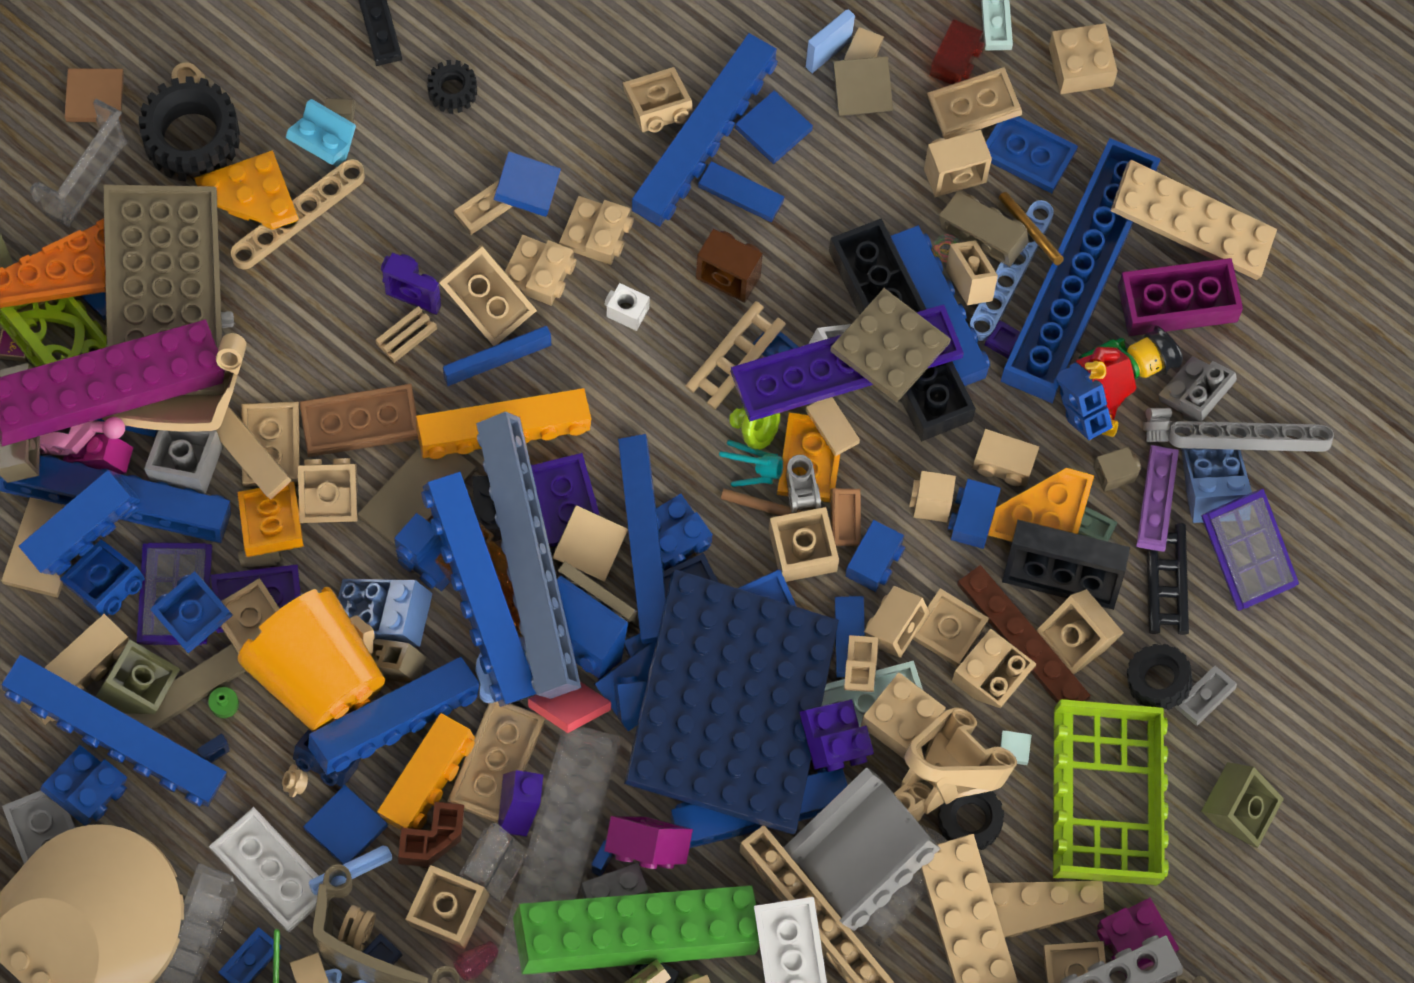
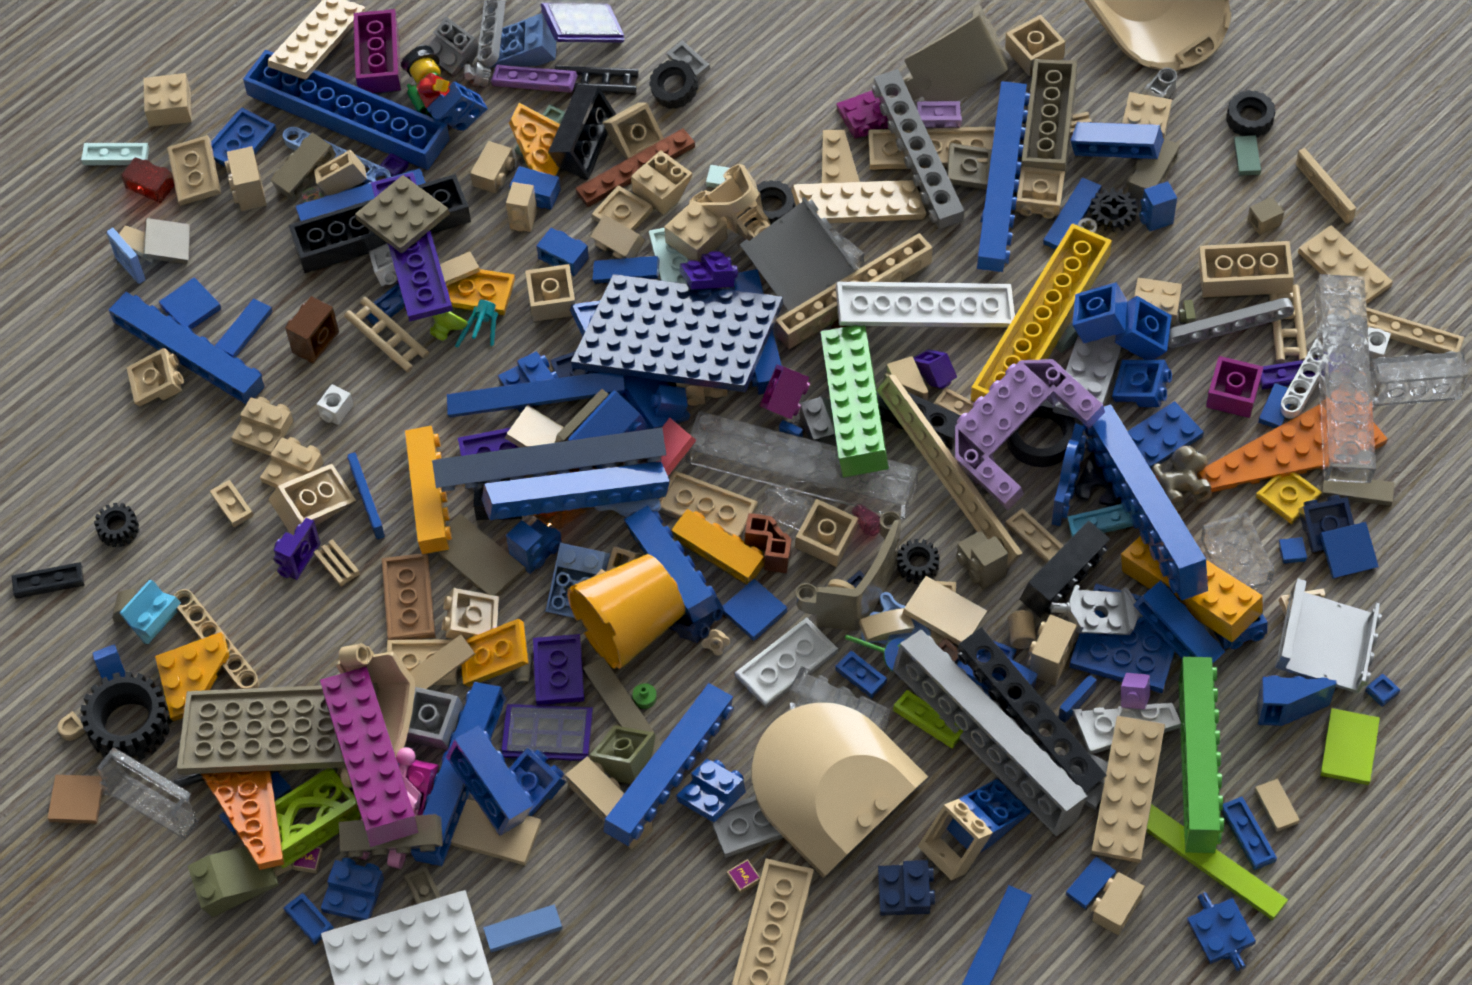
camera: 80 degrees left, 10 degrees down
(191, 611) = (571, 706): blue plate -> none
(214, 748) = (684, 696): dark blue tile -> none
(250, 609) = (577, 669): tan tile -> none
(263, 105) = (108, 662): none -> blue slope
(356, 867) = (789, 598): light blue axle -> none
(519, 801) = (743, 483): dark purple slope -> none
(527, 184) = (216, 470): blue tile -> none
(756, 503) = (512, 324): medium nougat bar -> none
(803, 489) = (503, 288): light grey piece -> none
(846, 516) = (518, 265): medium nougat tile -> none
(861, 663) = (655, 256): tan slope -> none
(1032, 229) = (316, 130): pearl gold bar -> none
(1063, 792) = (764, 94): lime window -> none
(1117, 468) = (507, 99): dark tan brick -> none
(1242, 803) = (769, 46): olive slope -> none

